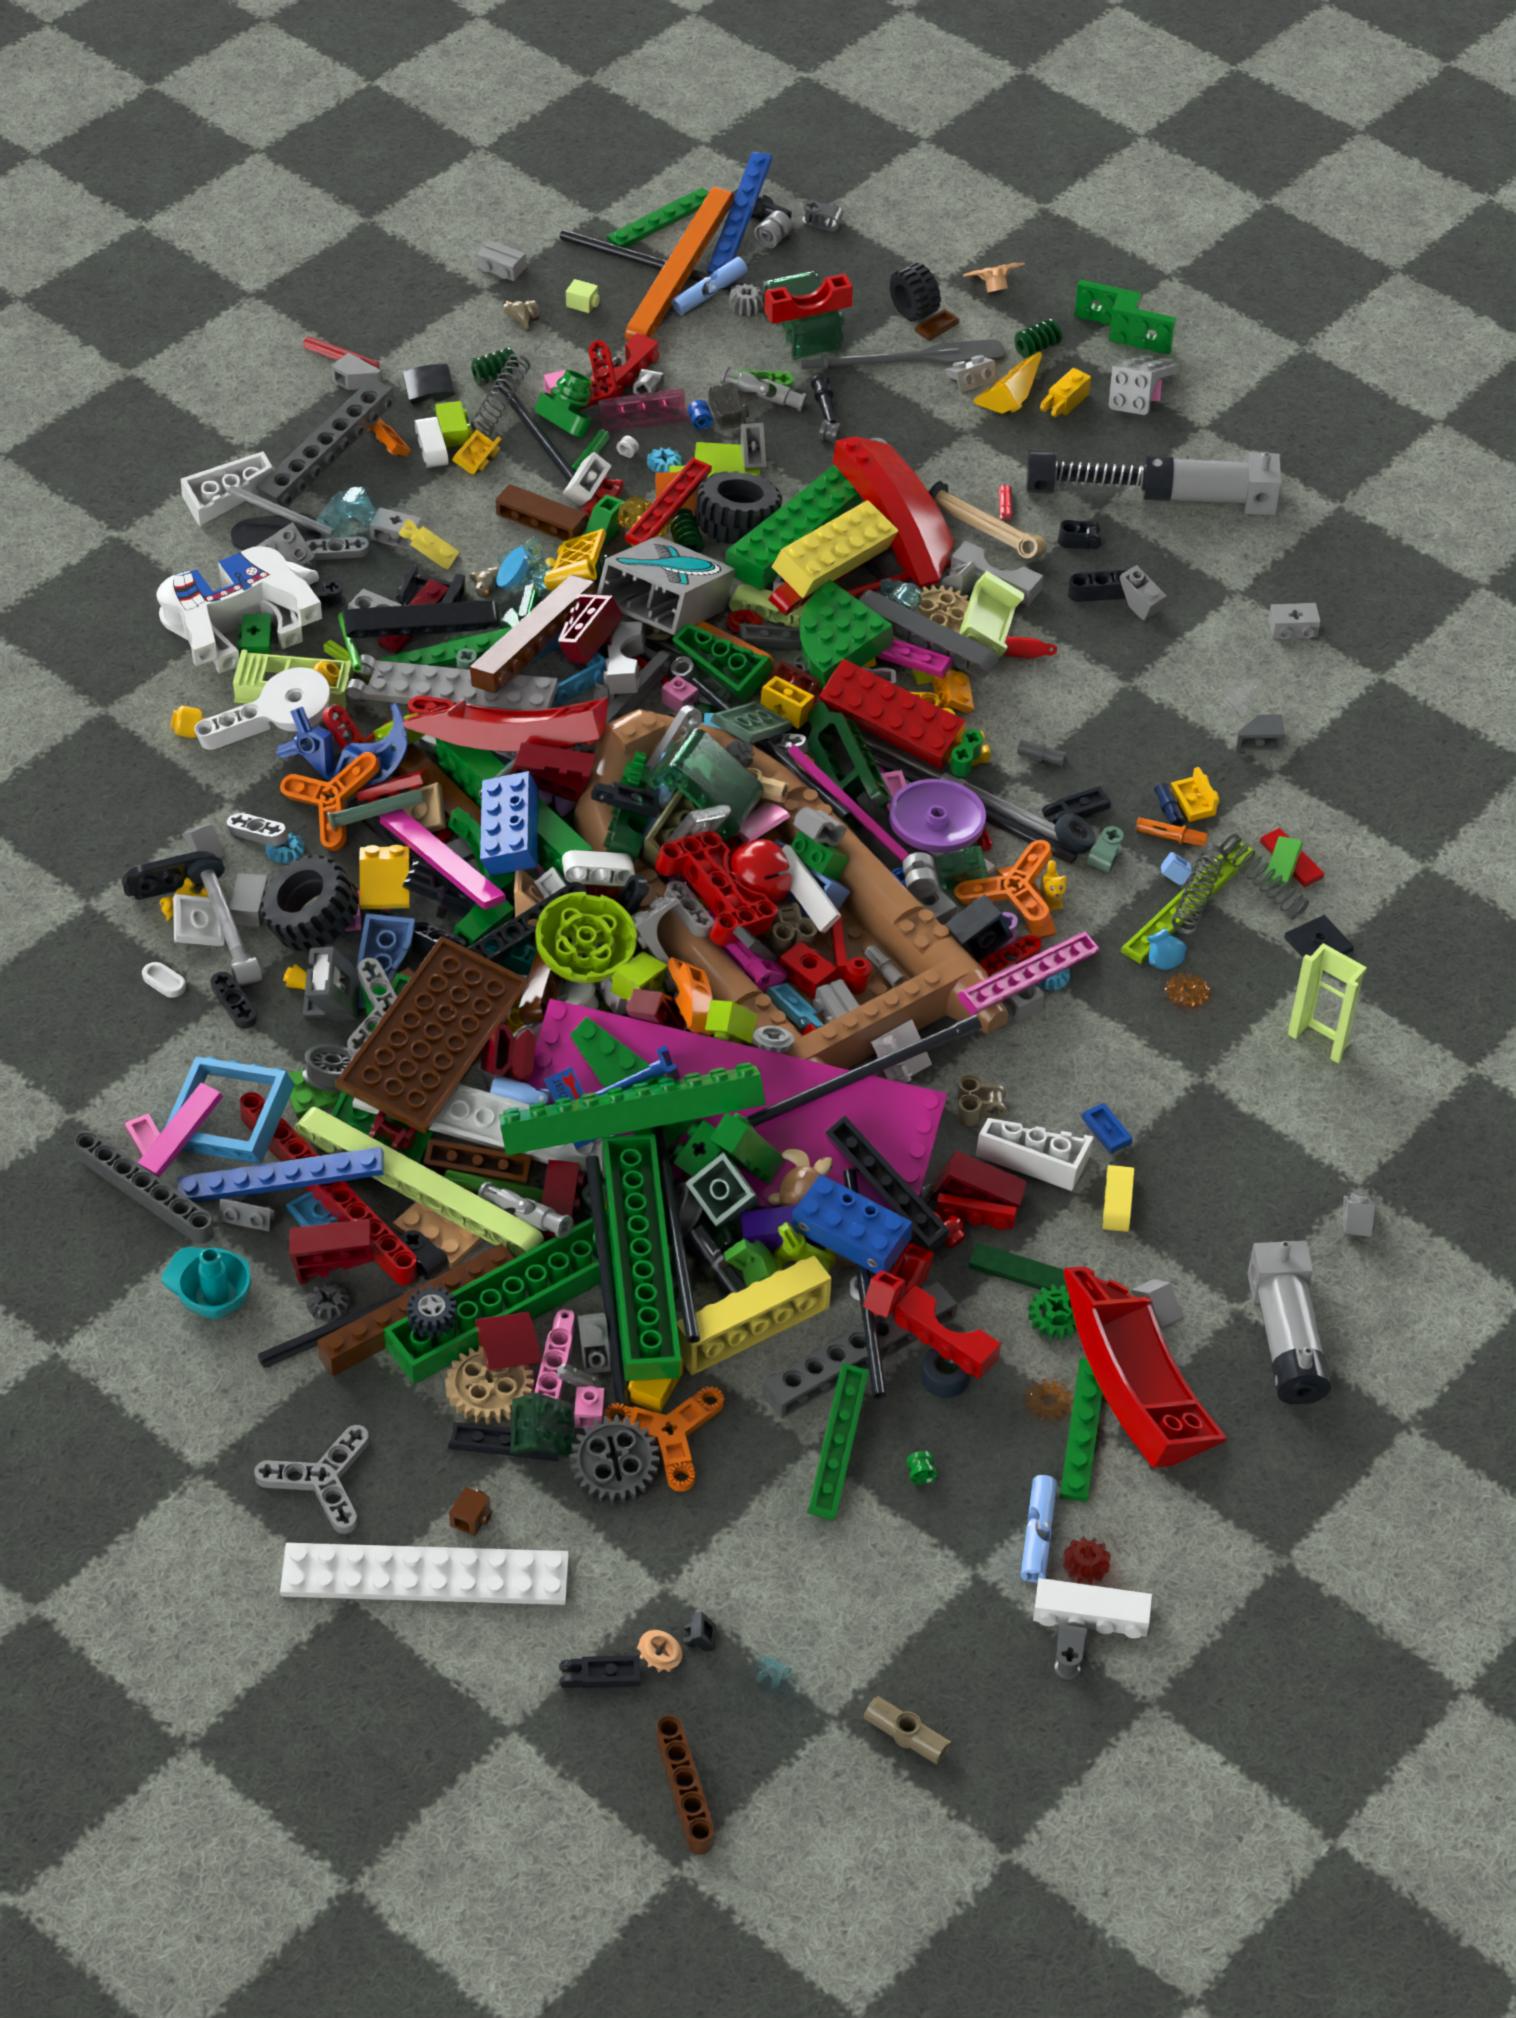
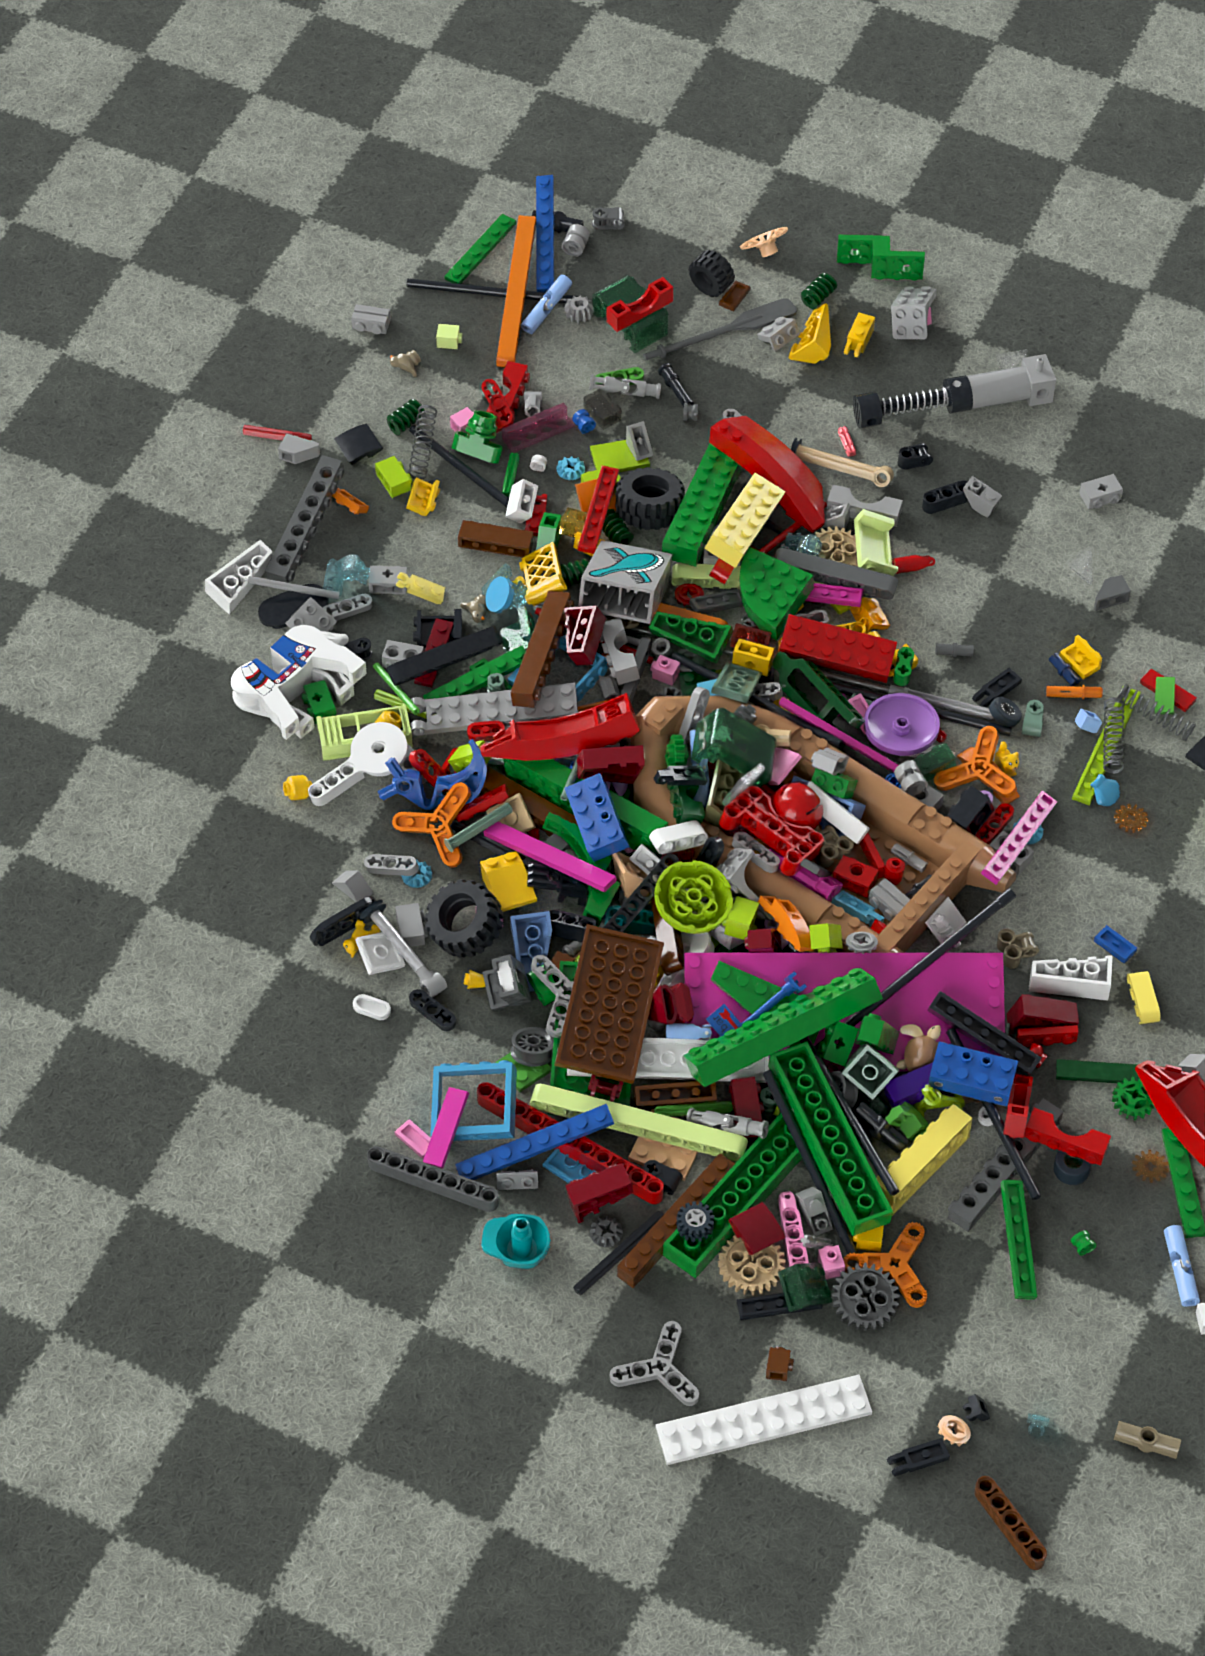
camera: 15 degrees left, 5 degrees up
(431, 442) = (383, 495): white beam -> none

